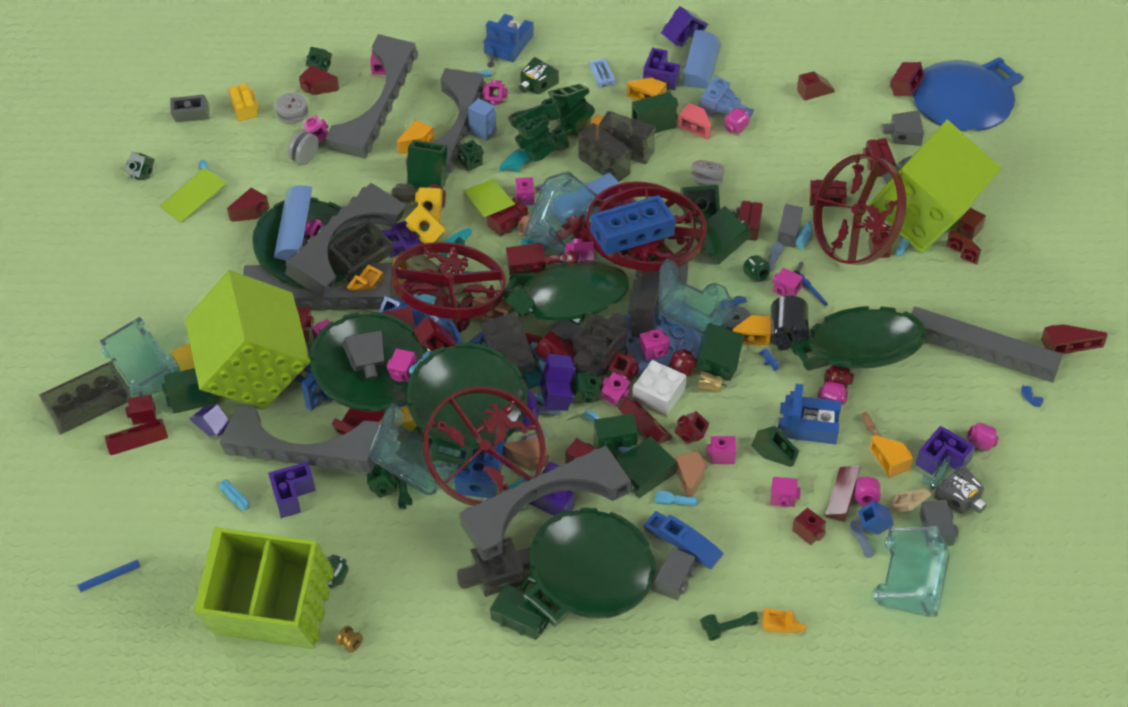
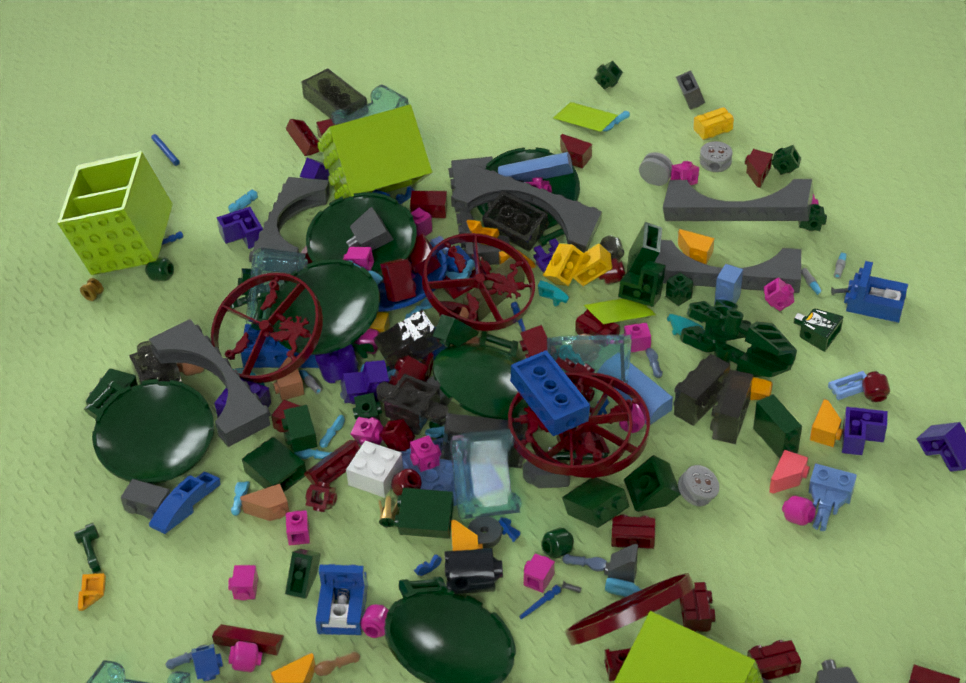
camera: 85 degrees right, 5 degrees down
(460, 54) = (840, 265): none -> light grey piece
(467, 173) = (644, 287): none -> dark green brick
(614, 54) = (876, 386): none -> dark red head
(701, 60) = (900, 470): medium blue brick -> none
(809, 526) = (200, 606): dark red brick -> none
(813, 85) = (890, 587): dark red slope -> none

